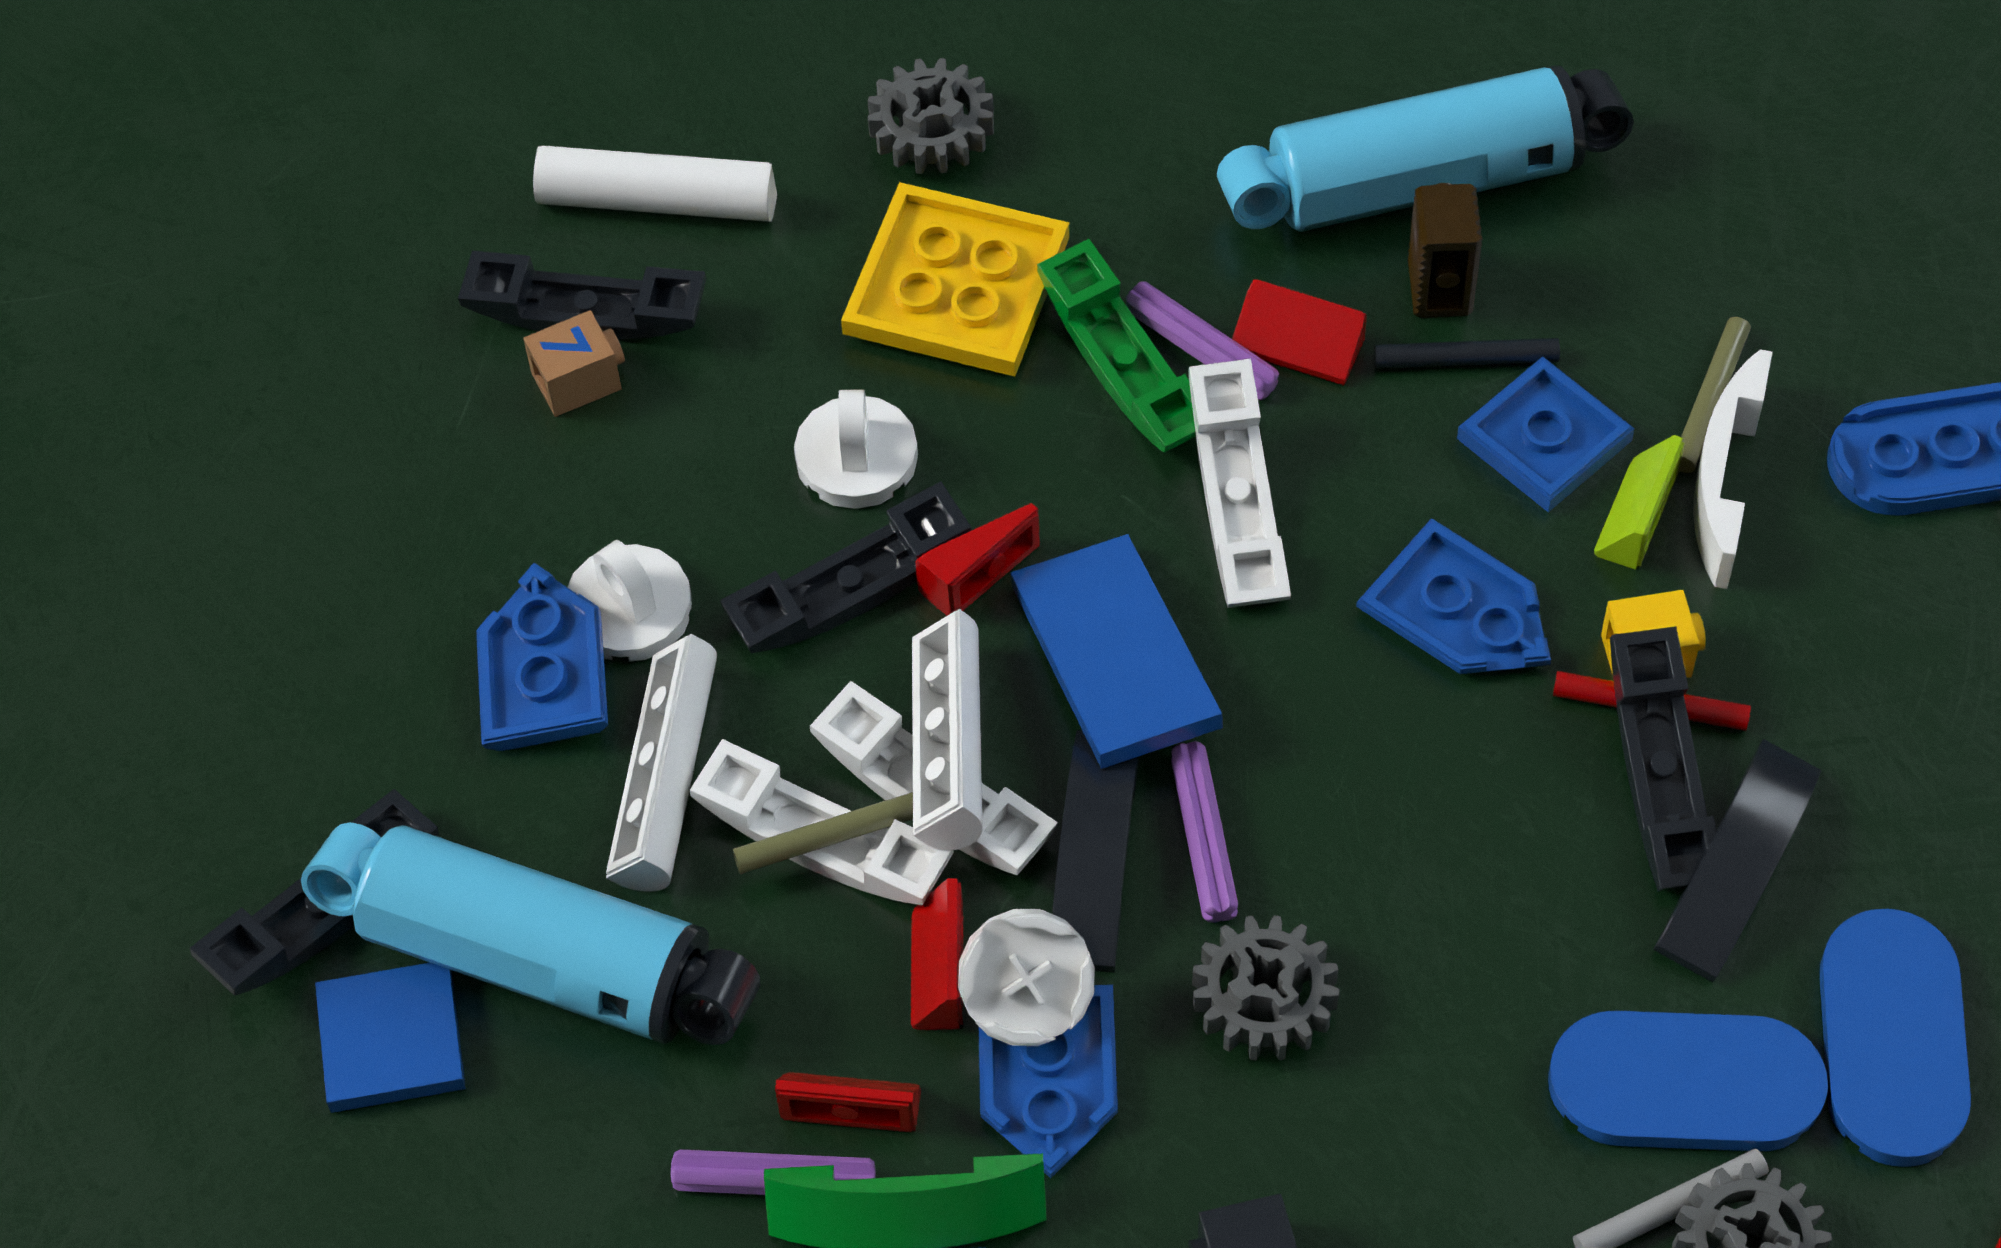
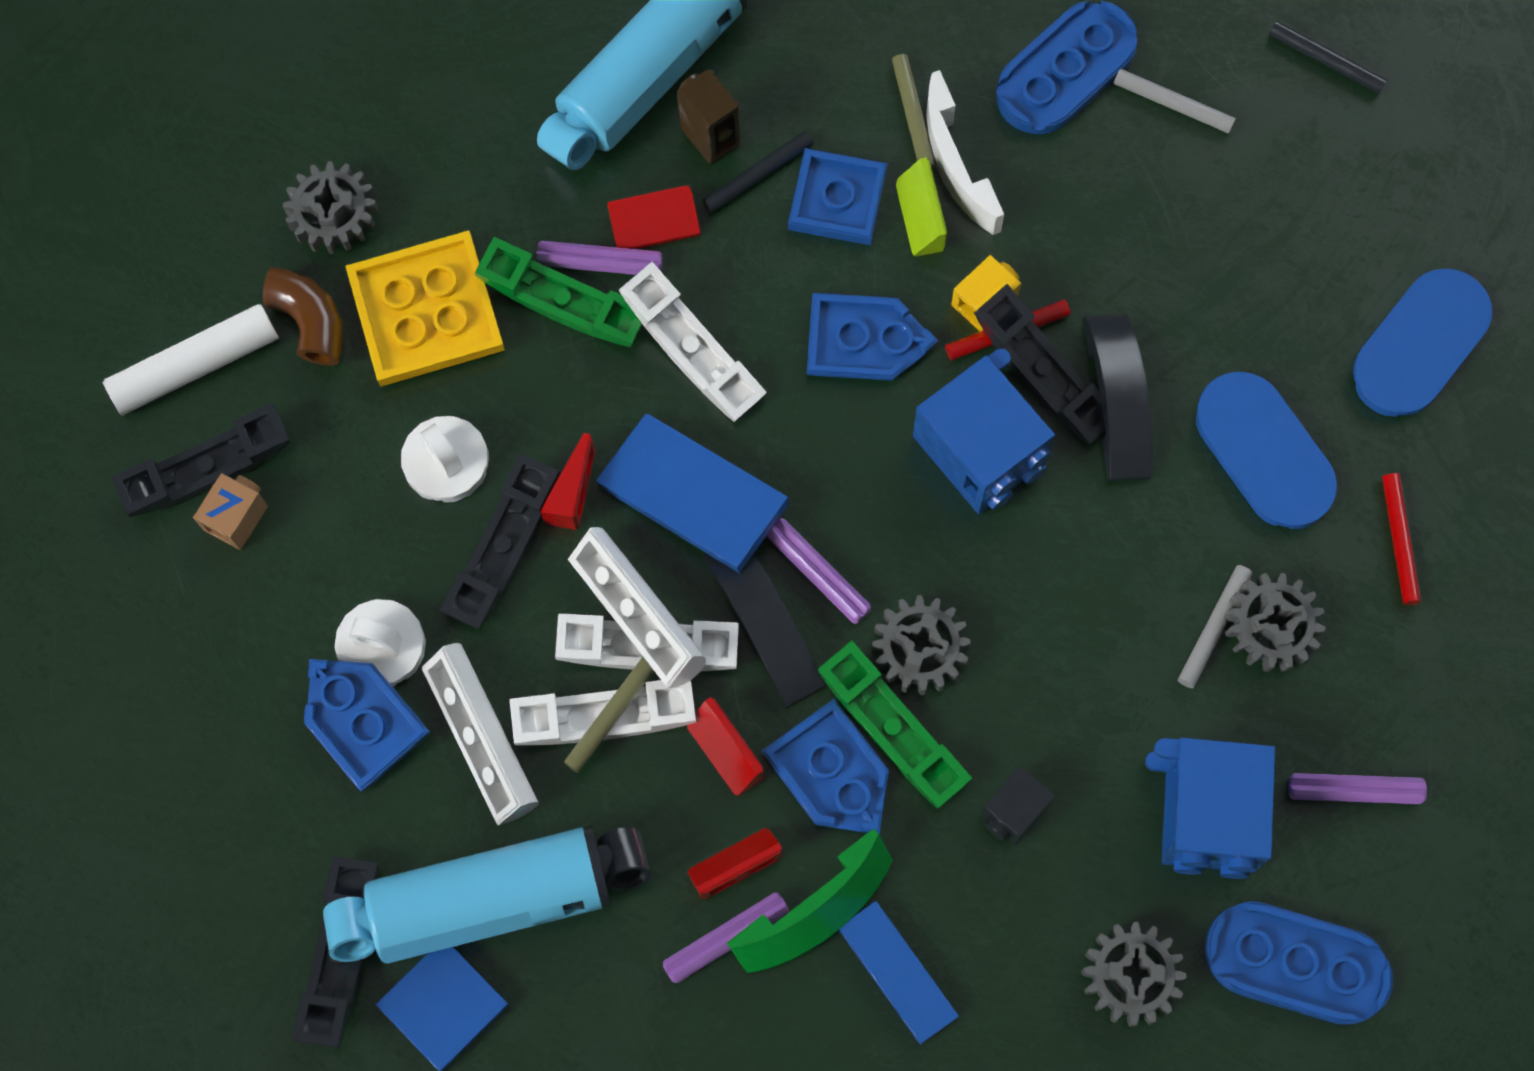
camera: 35 degrees left, 15 degrees up
(825, 212) = (311, 309): none -> reddish brown cylinder
(1026, 977) = (794, 732): white tile -> none
(1160, 1056) = (893, 726): none -> green slope
(1523, 784) = (984, 434): none -> blue container
(1687, 1080) = (1176, 548): blue tile -> none

